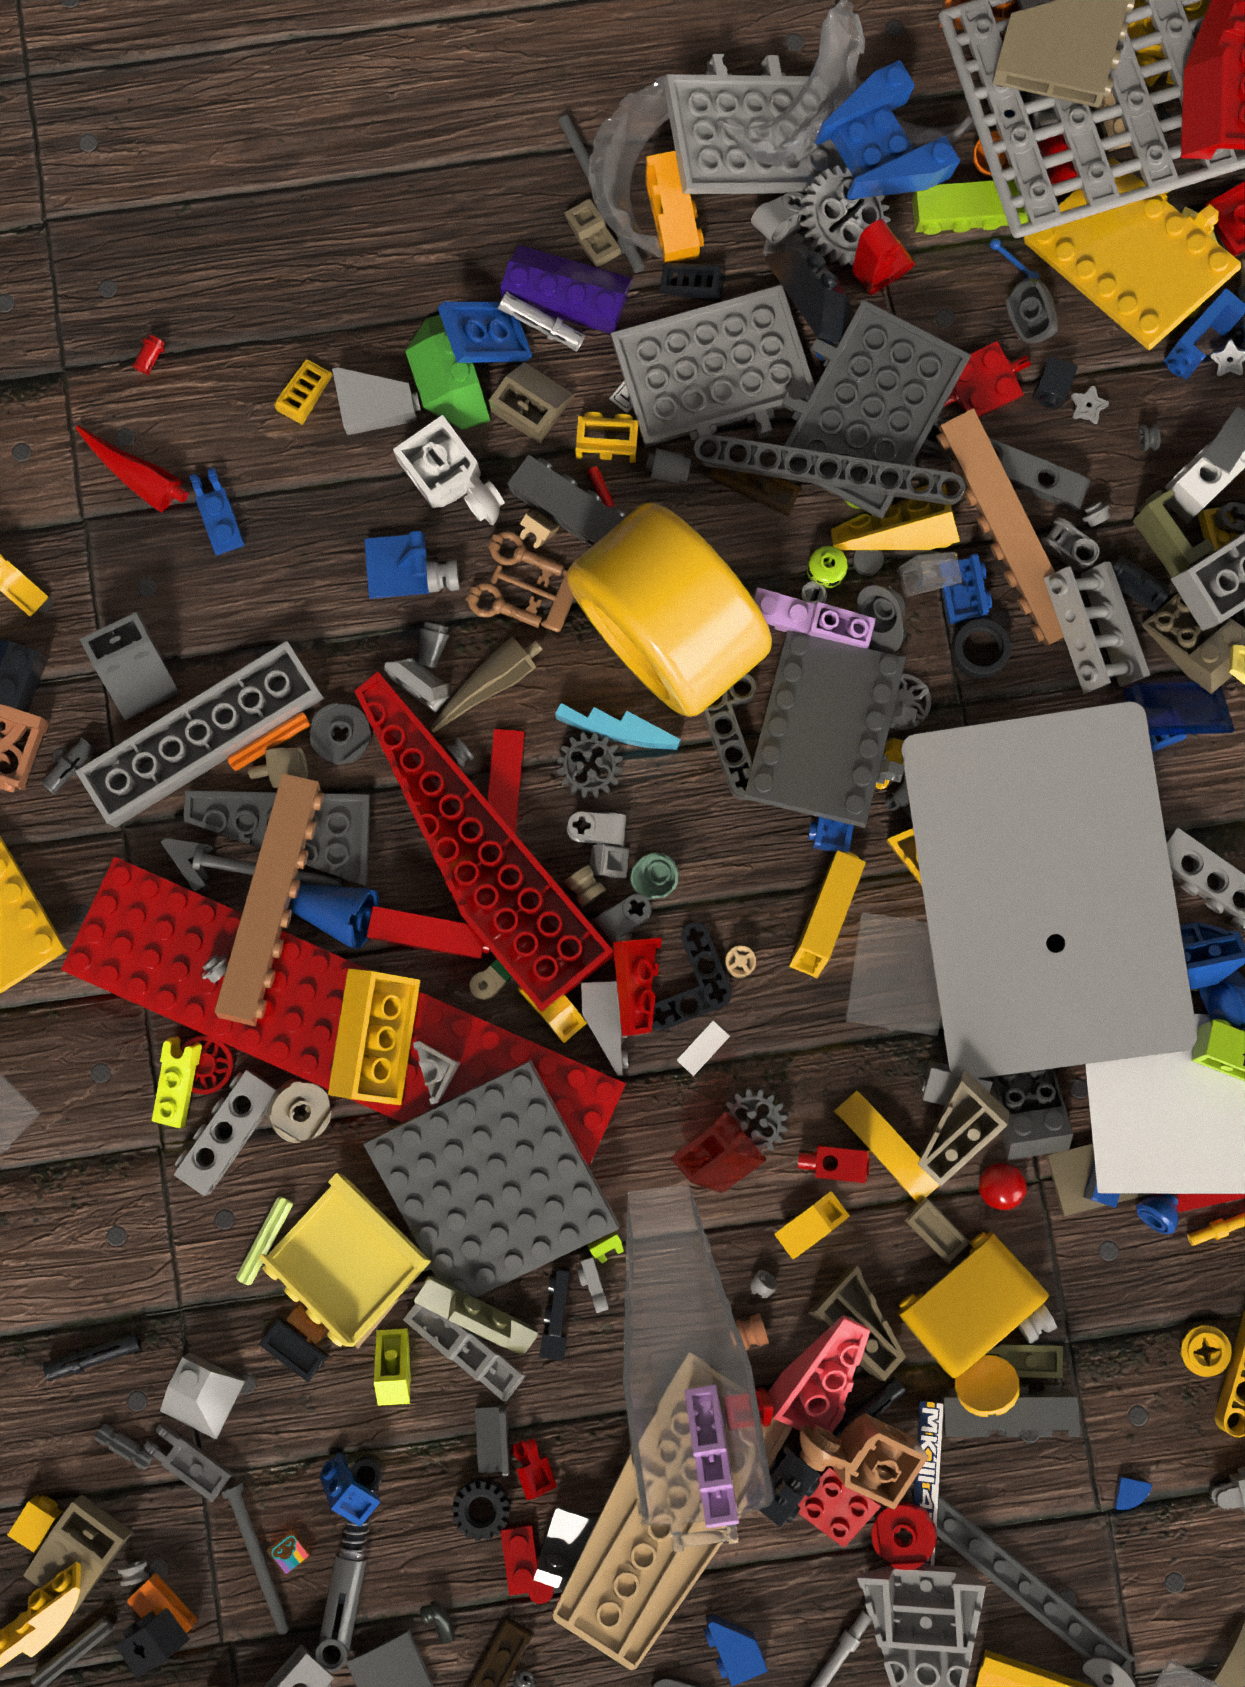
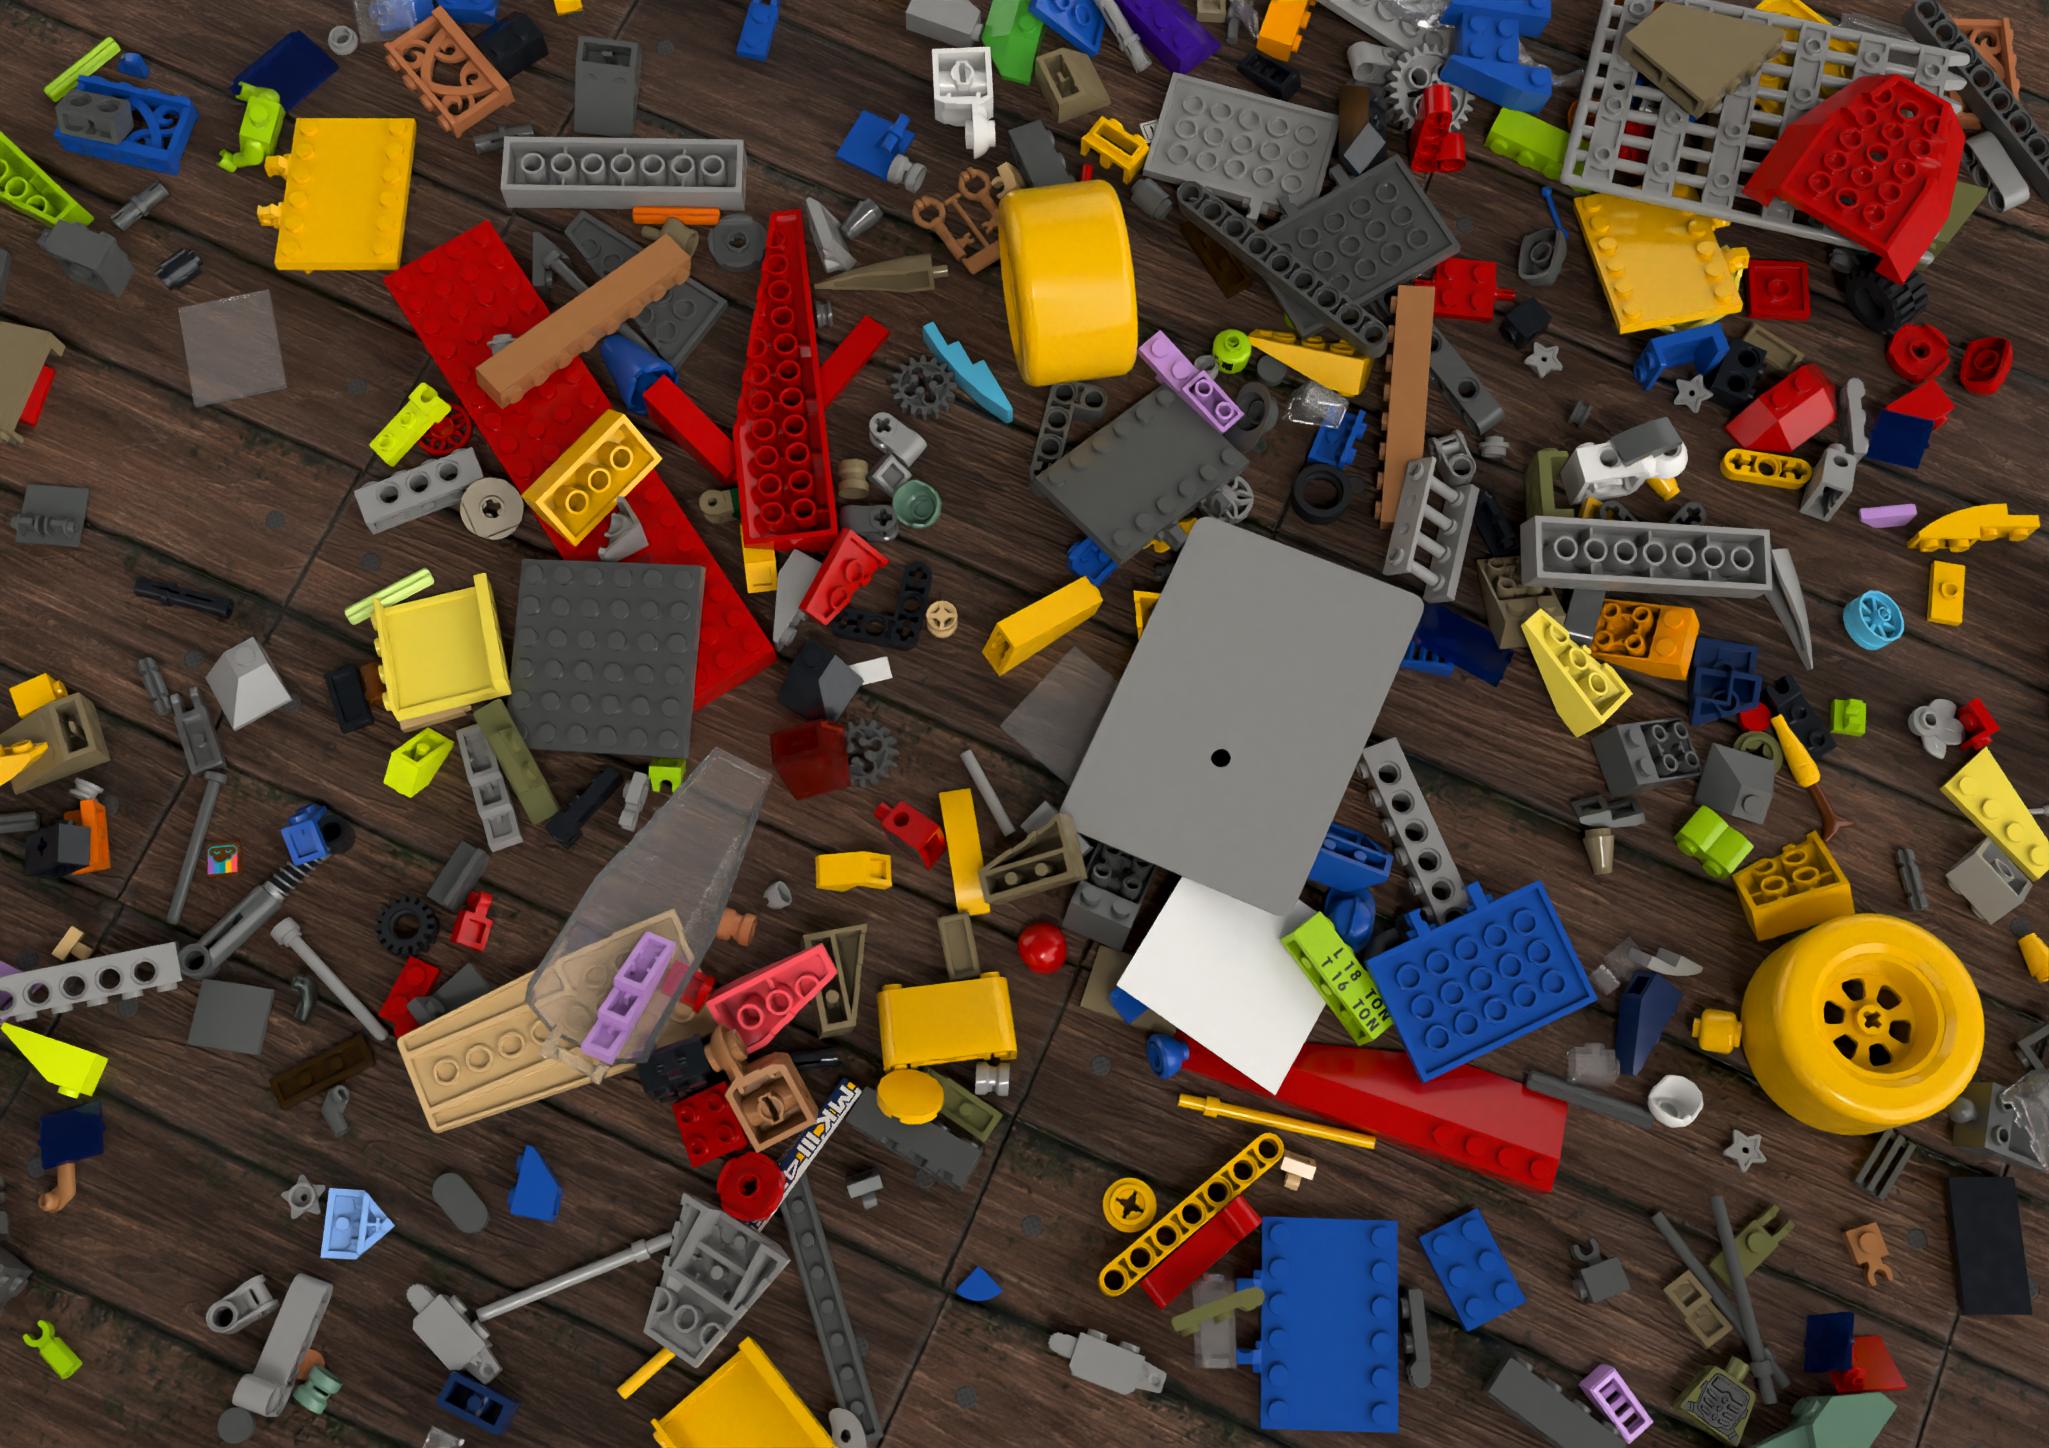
camera: 30 degrees right, 10 degrees down
(389, 1579) = (288, 933): none -> light grey piece
(679, 1086) = (819, 684): none -> black slope
(874, 1085) = (988, 793): none -> light grey bar
(991, 1474) = (865, 1184): none -> dark grey tile

